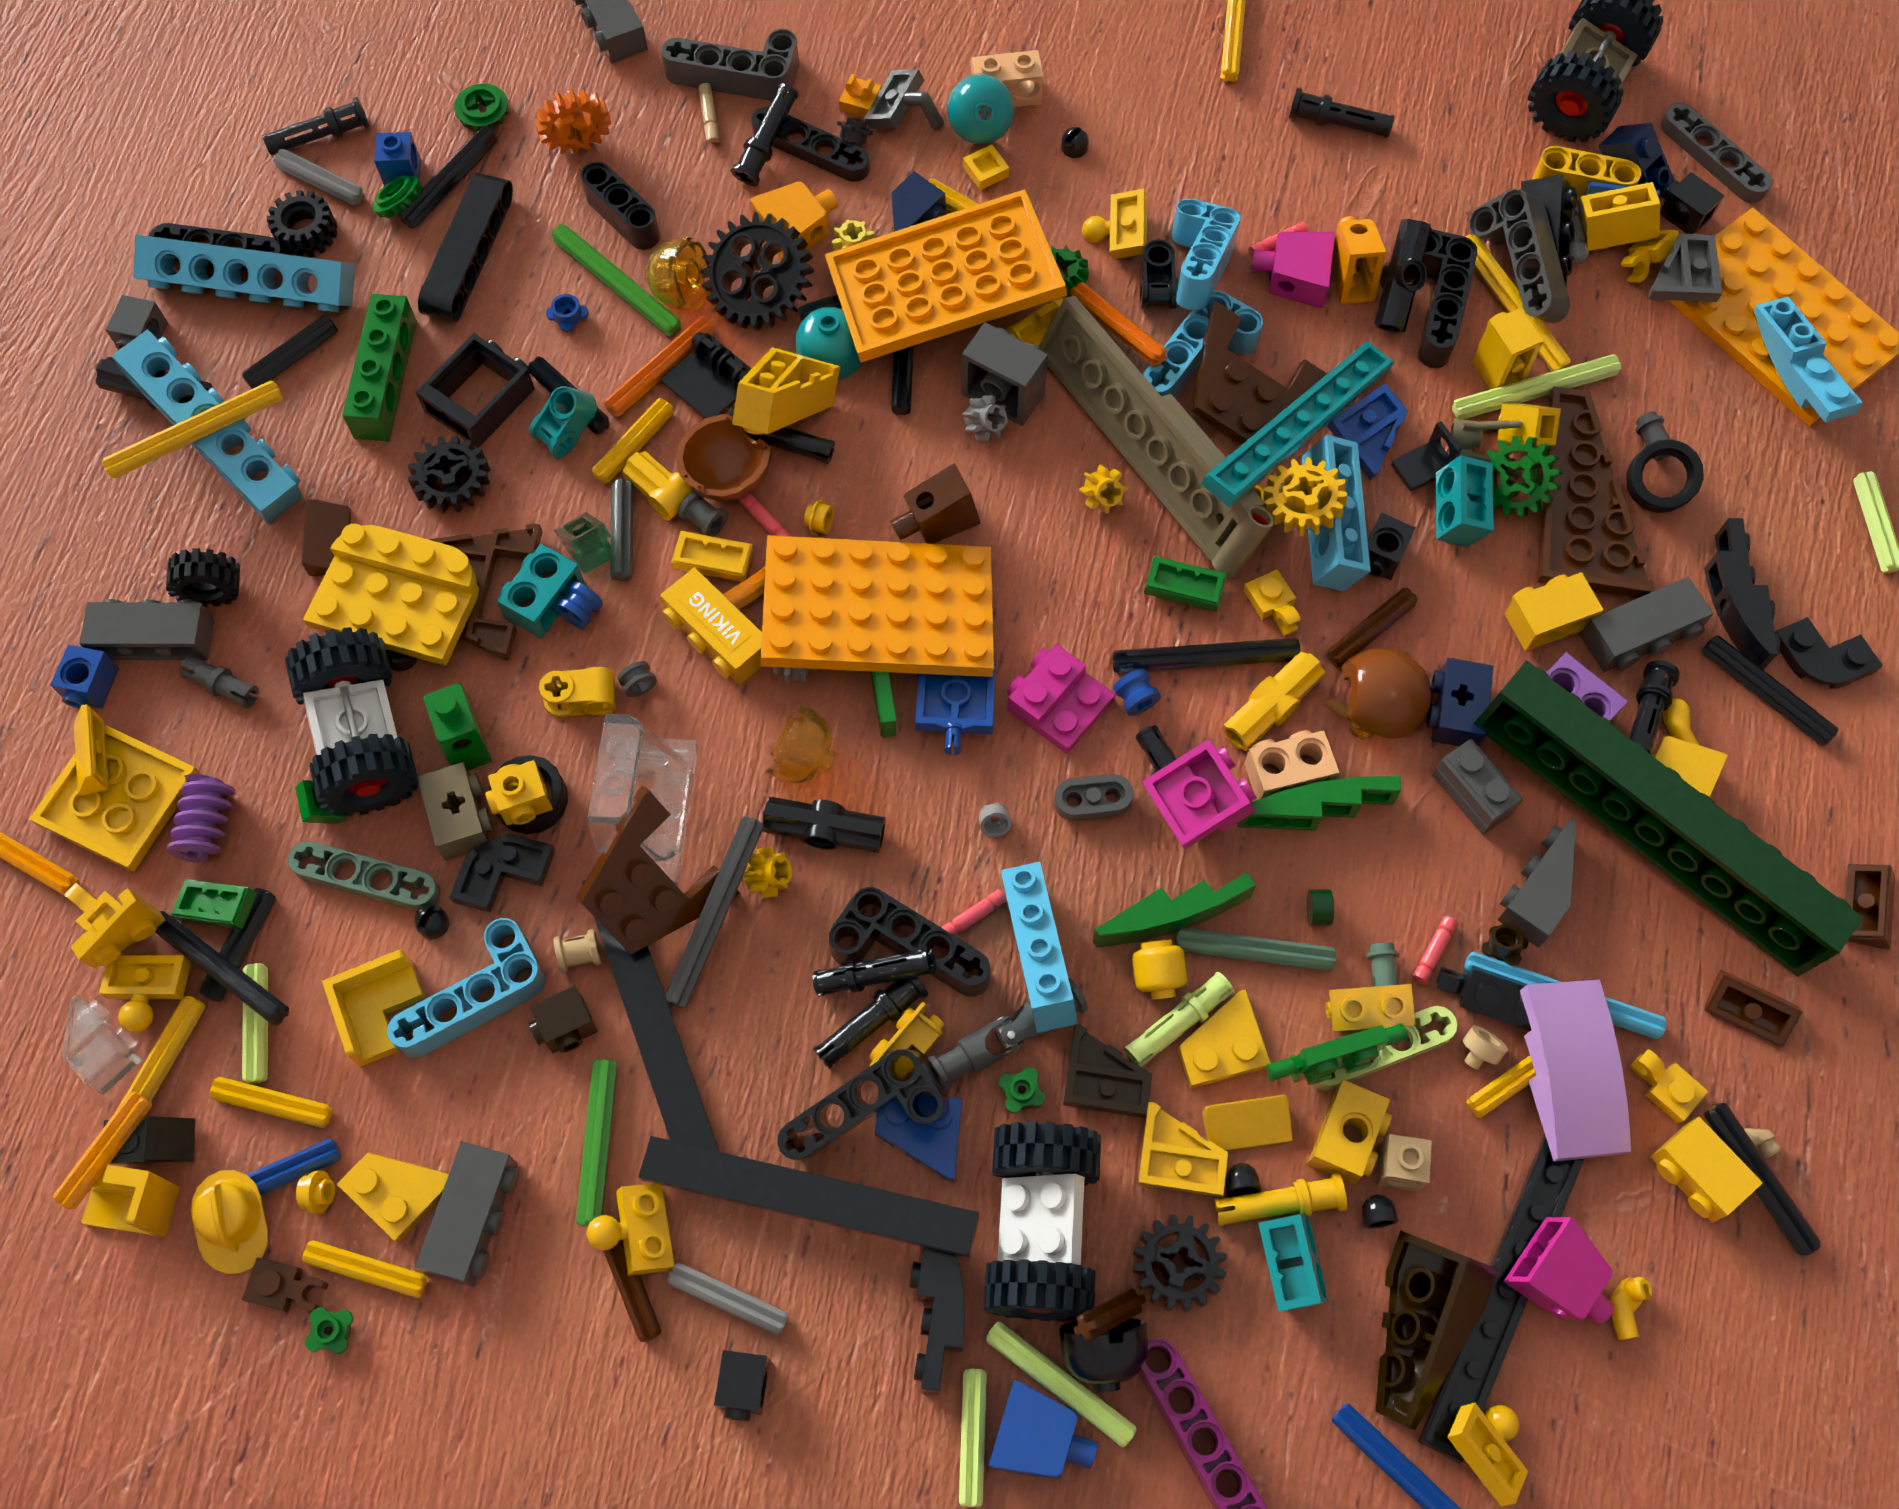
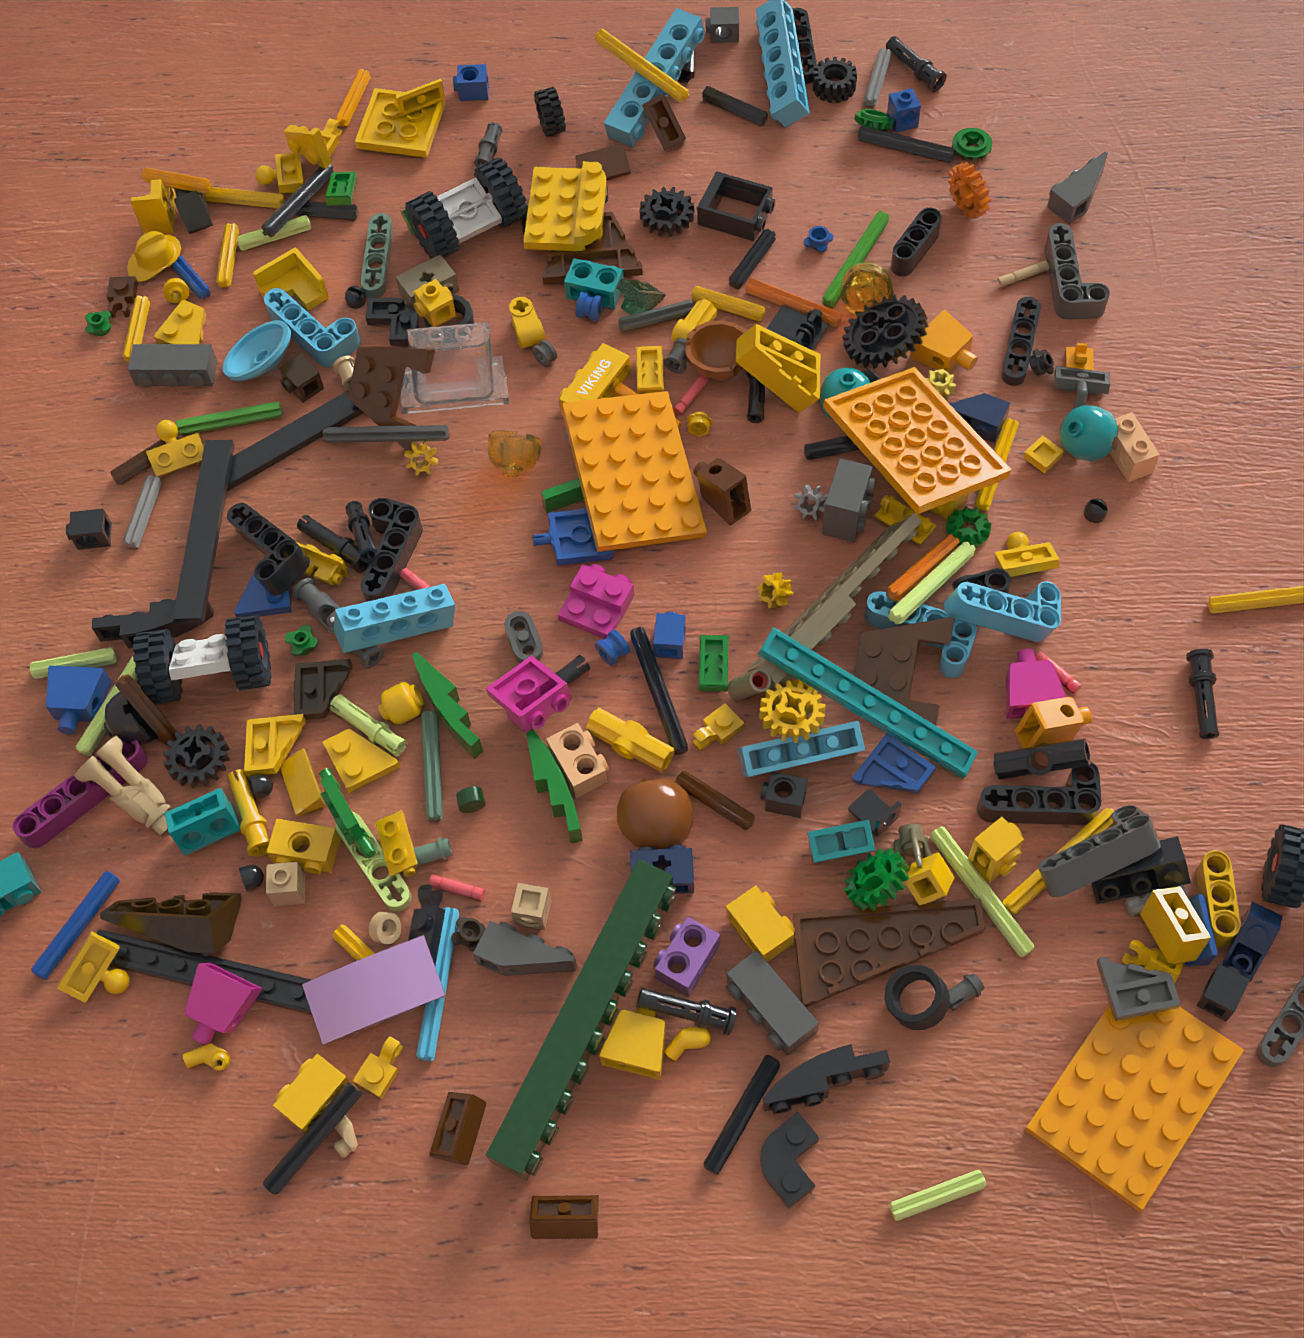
camera: 80 degrees right, 5 degrees down
(94, 1046) = (240, 162): clear slope -> none
(147, 629) = (512, 100): dark grey brick -> none
(198, 818) = (393, 164): medium lavender piece -> none
(291, 435) = (664, 121): none -> reddish brown slope
(379, 367) = (735, 151): green brick -> none
(456, 719) = (482, 265): green torso -> none
(465, 247) = (849, 168): black beam -> none
(479, 1074) = (257, 351): none -> medium azure dish
(563, 422) = (725, 258): teal piece -> none
(758, 148) = (997, 306): black pin -> none
(824, 824) = (464, 483): black piece -> none
(997, 828) = (493, 581): light grey hinge -> none
(1135, 621) = (669, 635): none -> blue brick
(1147, 319) = (931, 583): none -> yellowish green axle
(1238, 1353) = (139, 800): none -> tan piece
(1477, 786) = (591, 891): dark grey brick -> none
(1491, 857) = (531, 906): none -> tan brick
(1800, 361) = (1071, 1097): medium azure slope -> none

